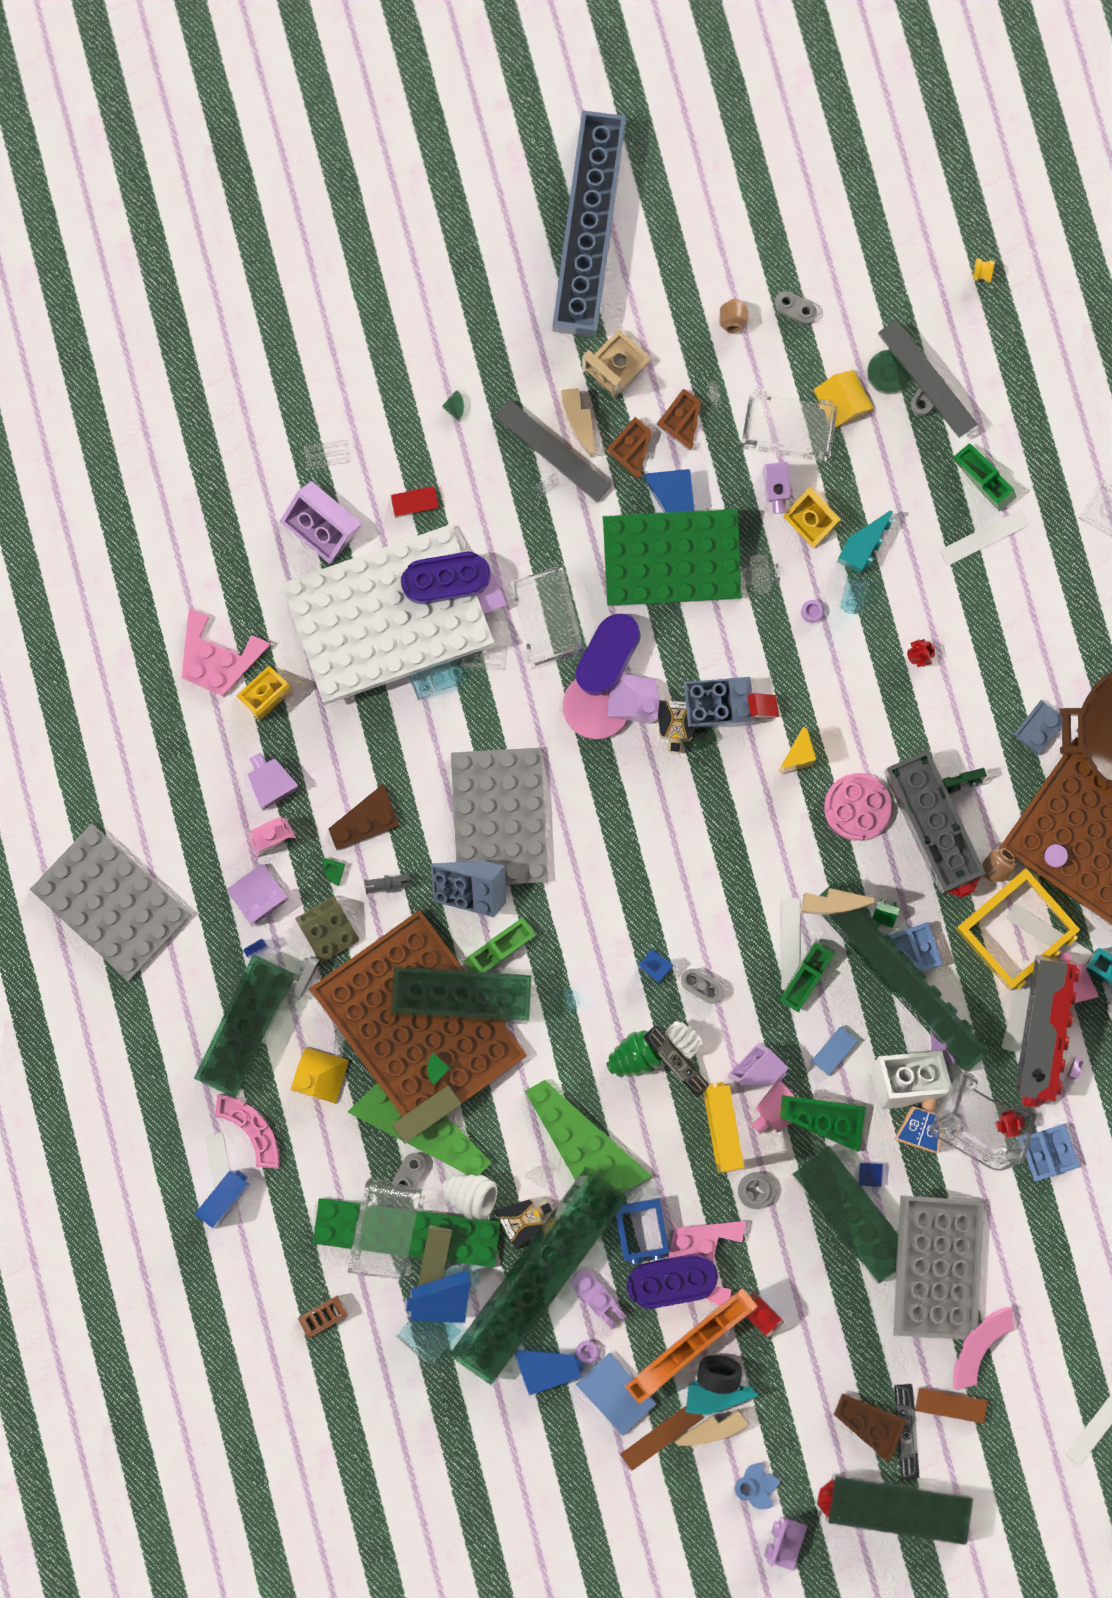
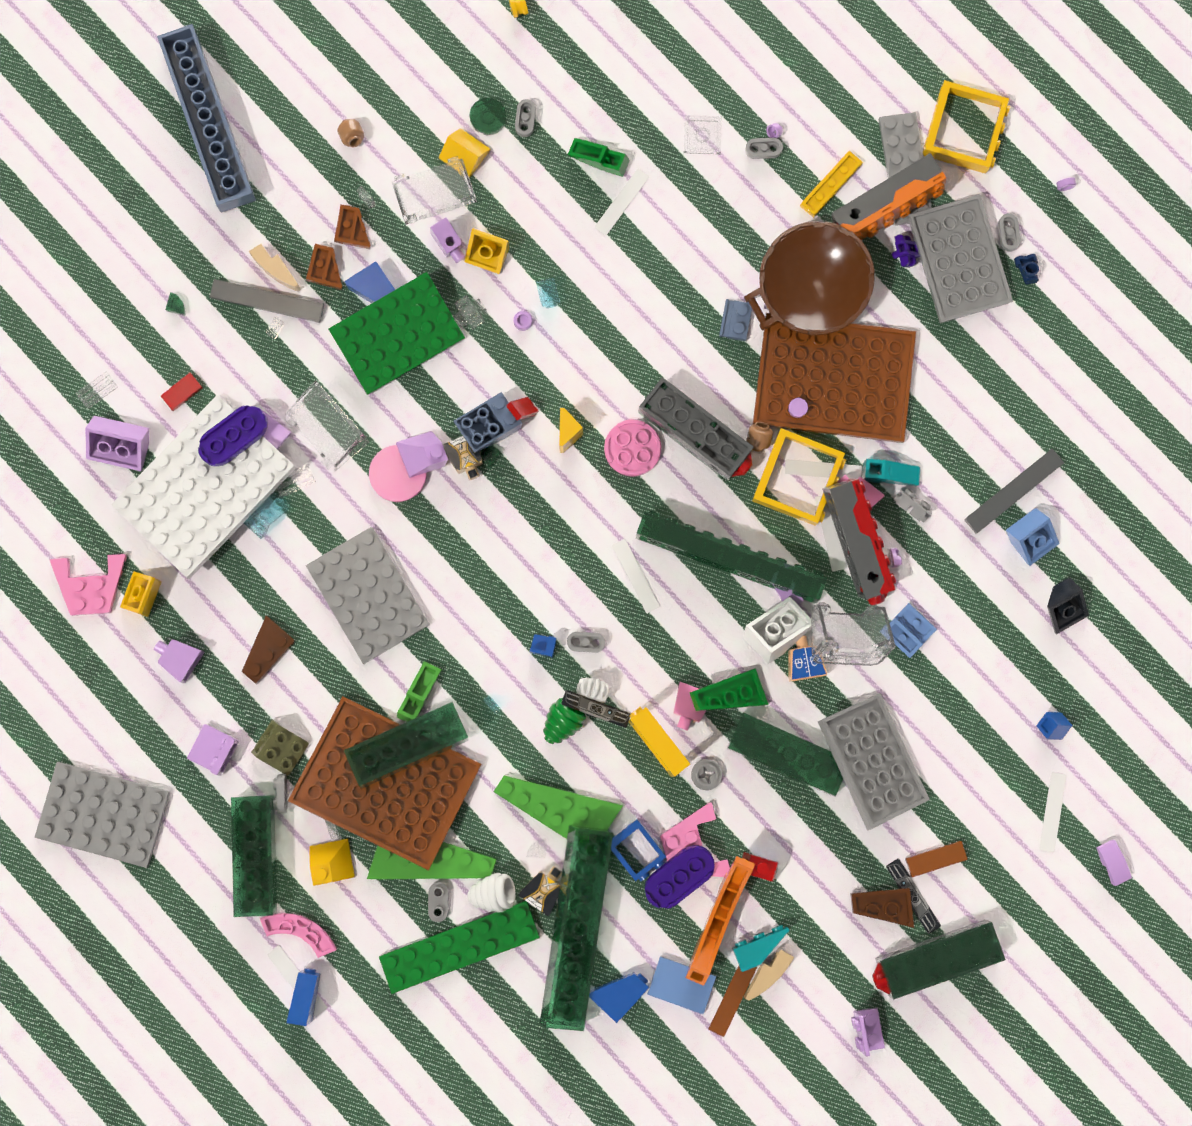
camera: 30 degrees left, 0 degrees up
(255, 948) = (232, 791): clear blue tile -> none
(271, 836) = (200, 699): bright pink torso -> none
(333, 870) = (262, 701): green tile -> none
(339, 1307) = (436, 1031): dark orange slope -> none
(385, 1229) = (440, 955): clear windscreen -> none
(387, 883) = (308, 689): dark grey pin -> none
(426, 1114) = (427, 850): olive tile -> none
(428, 1338) = (515, 1015): clear light blue plate -> none
(435, 1254) = (491, 957): olive tile -> none
(436, 1069) = (416, 811): green tile -> none
(440, 1300) = (511, 986): blue slope -> none
(470, 886) = (371, 658): sand blue slope -> none
(473, 1275) = (515, 958): clear light blue bracket -> none
(587, 1352) = (643, 964): lavender tile -> none
(595, 1296) = (627, 918): lavender hinge -> none
(608, 374) = (277, 222): tan bracket -> none
(608, 654) = (386, 430): dark purple tile -> none
(718, 1383) = (756, 937): black tyre -> none
(759, 1068) = (661, 681): lavender slope -> none
(760, 1486) = (826, 996): medium blue plate -> none
(795, 308) = (393, 106): light grey plate -> none
(807, 975) = (660, 593): green slope -> none
(834, 903) = (652, 527): tan slope -> none
(834, 1050) = (710, 638): medium blue tile -> none
(861, 544) = (533, 254): teal slope -> none
(870, 1174) = (785, 717): clear blue tile -> none
(885, 914) = (695, 516): green tile -> none
(918, 946) = (733, 527): medium blue wing -> none
(921, 653) = (619, 309): red gear -> none
(927, 378) = (518, 105): dark grey tile -> none
(972, 778) = (705, 382): dark green wing -> none
(976, 1345) = (931, 803): bright pink tile -> none
(1010, 1124) = (869, 624): red gear -> none

